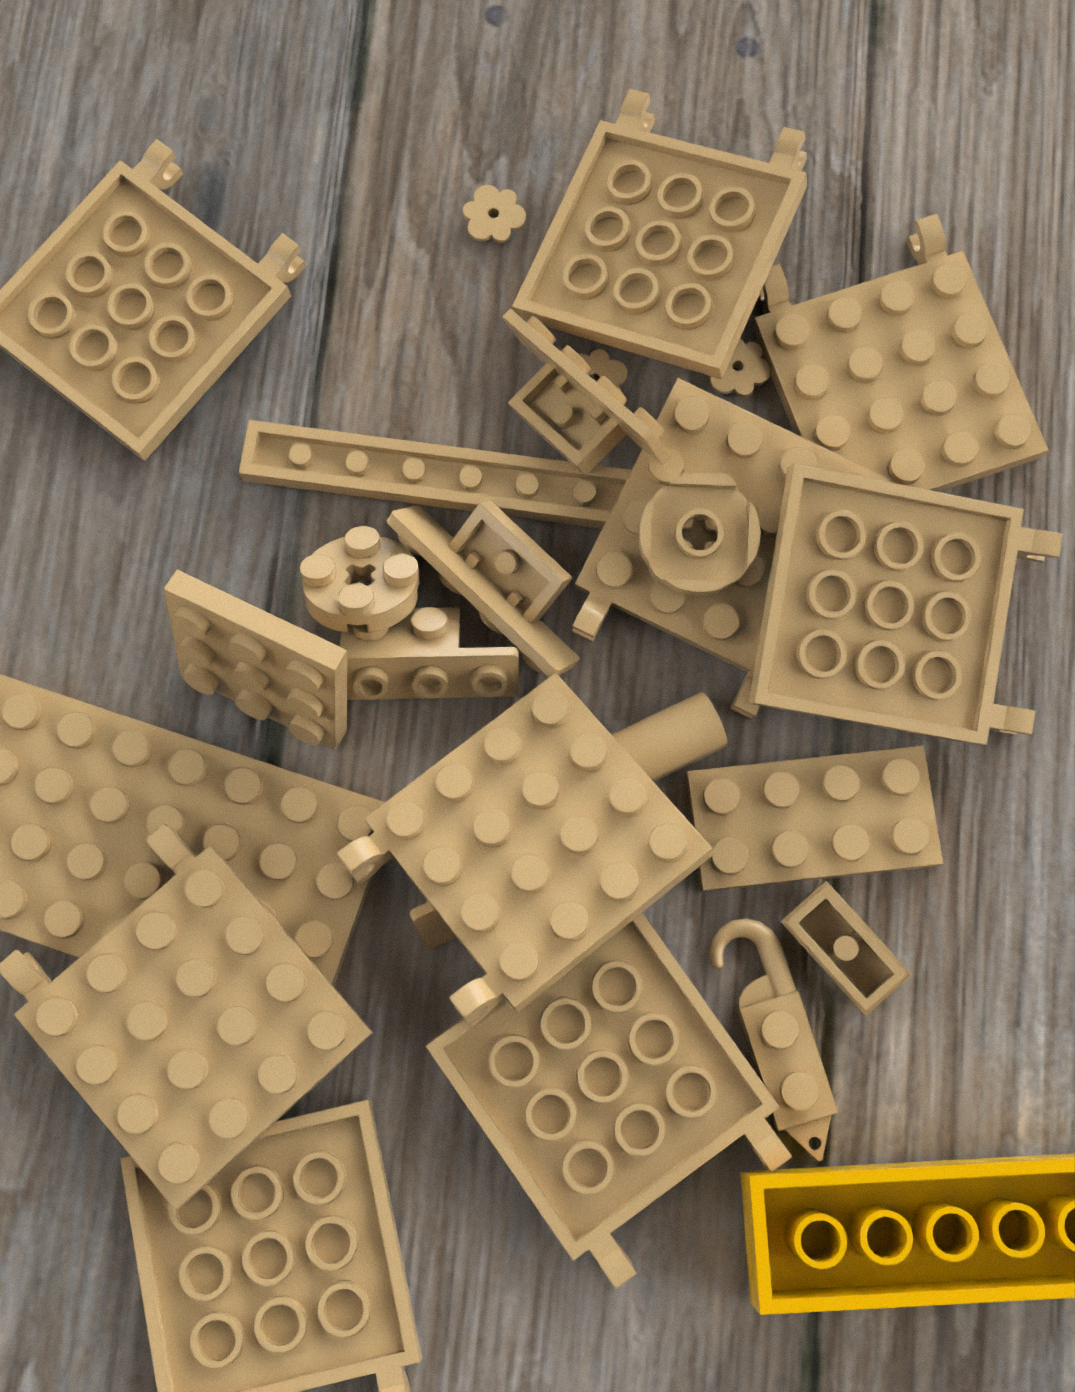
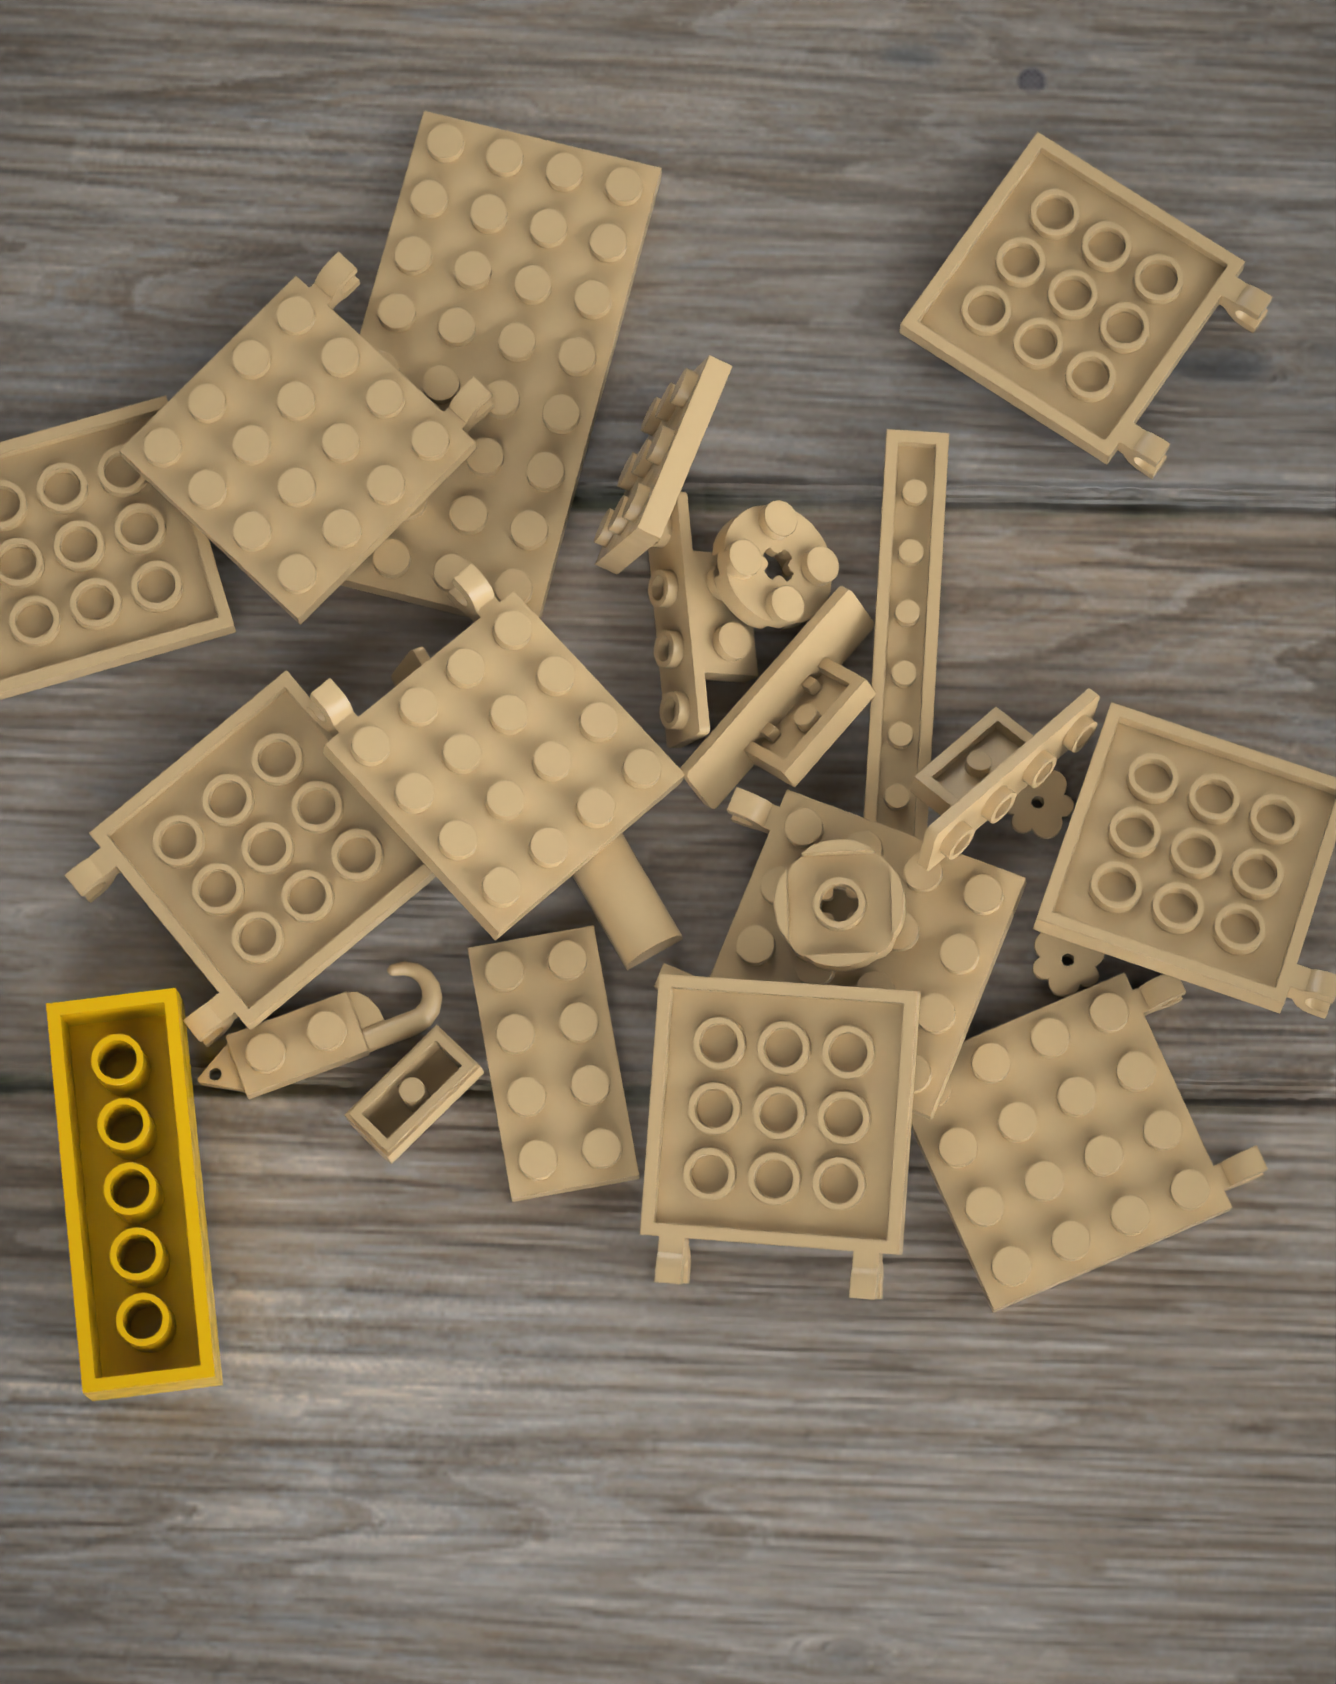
camera: 85 degrees right, 0 degrees up
(490, 203) = (1246, 669): tan plant -> none

